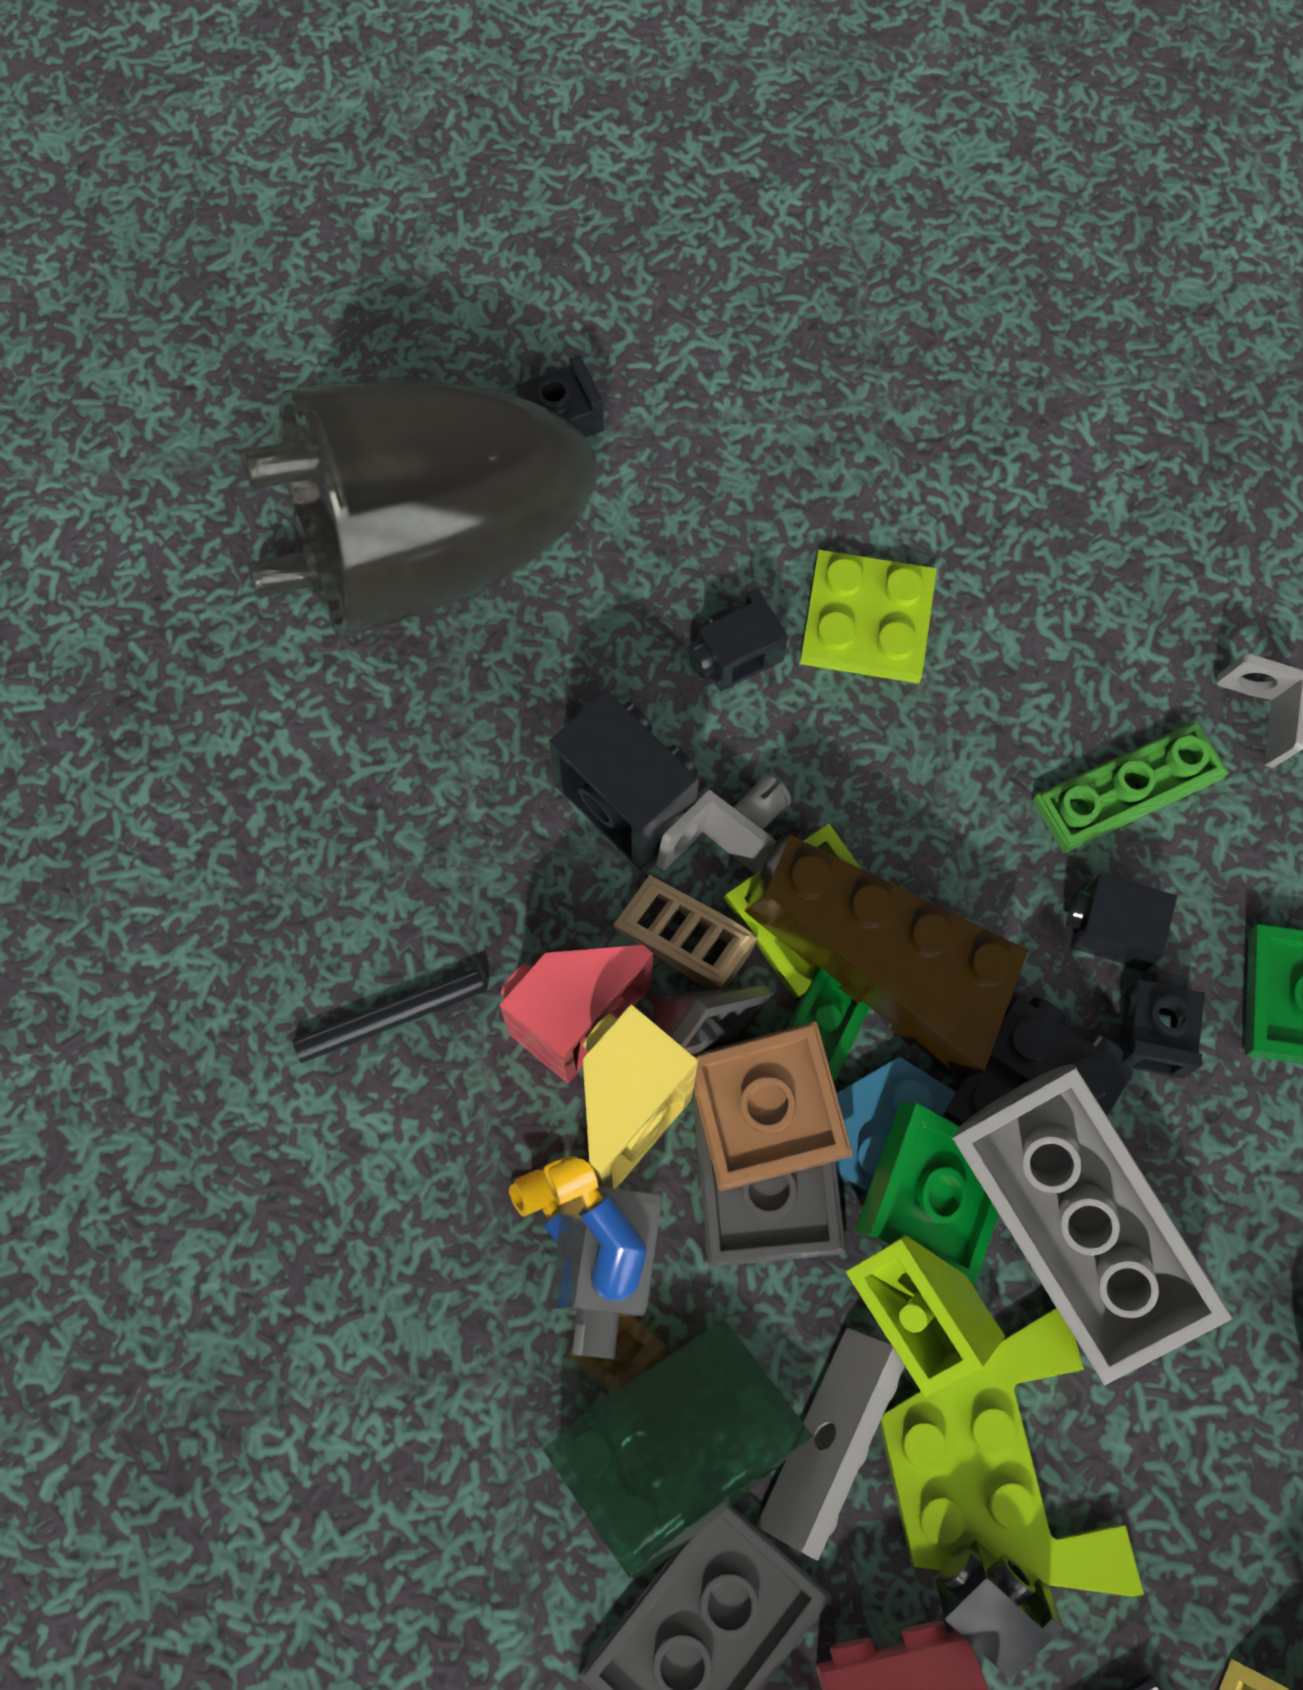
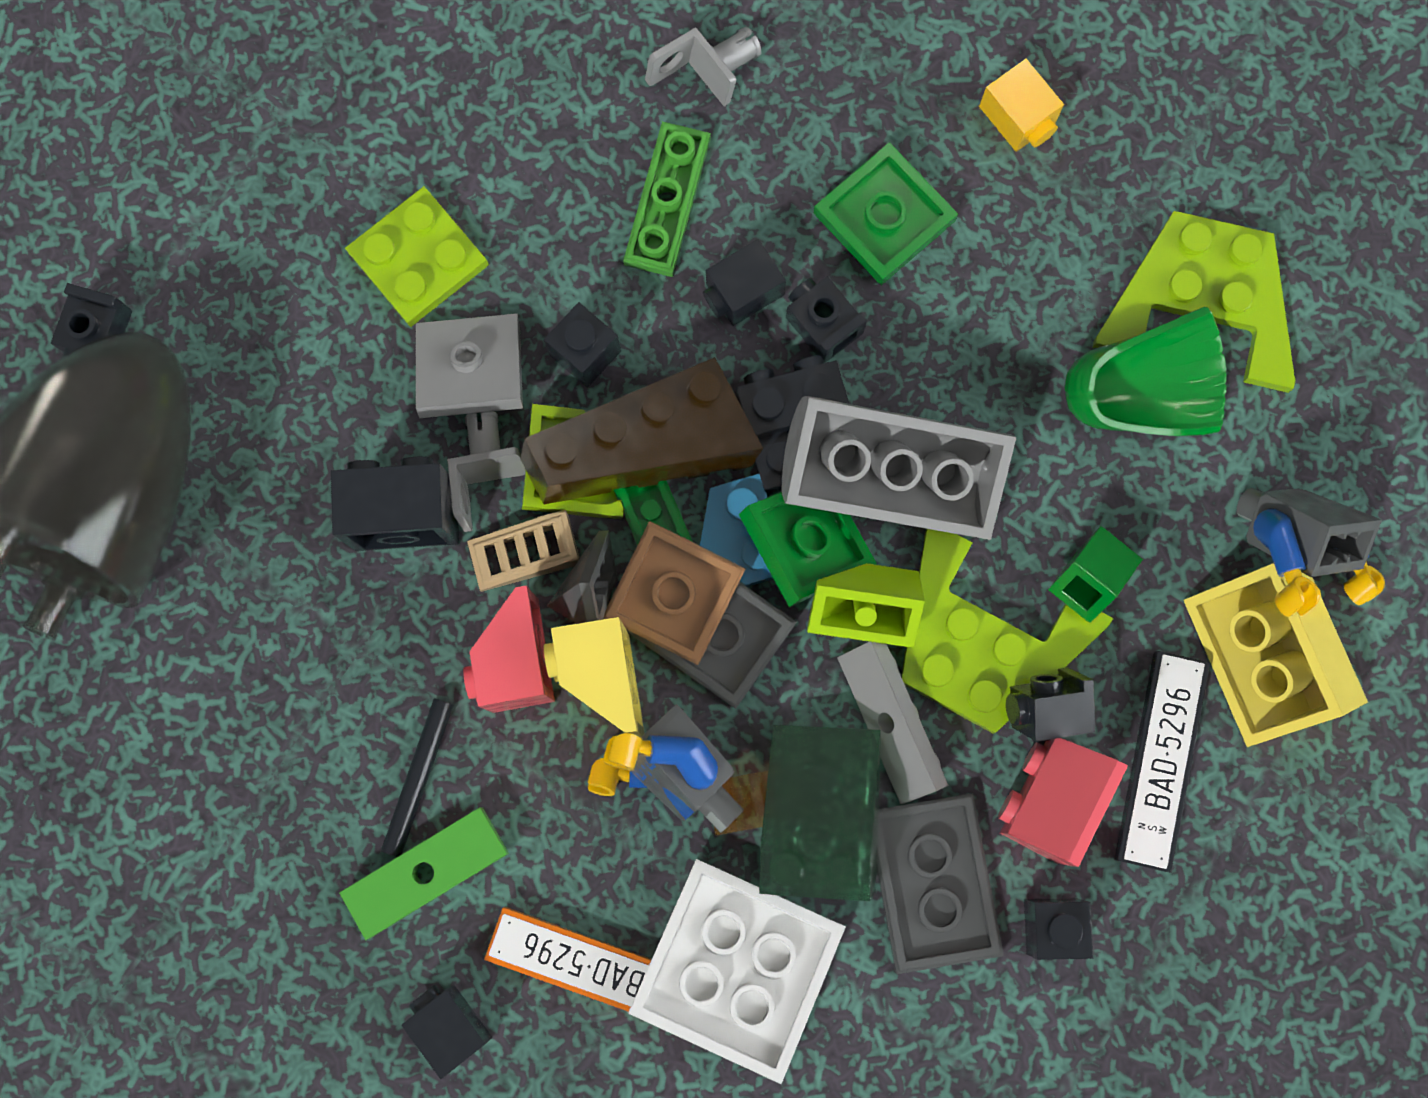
camera: 45 degrees left, 10 degrees up
(164, 1244) = (445, 1029): none -> black brick
(266, 1082) = (396, 889): none -> bright green tile
(338, 1349) = (567, 959): none -> white tile
(447, 1498) = (737, 971): none -> white plate
(739, 643) = (364, 354): black brick -> none
(811, 740) = (468, 366): none -> light grey plate
(925, 822) = (583, 344): none -> black brick
(1171, 1533) = (1095, 574): none -> green brick

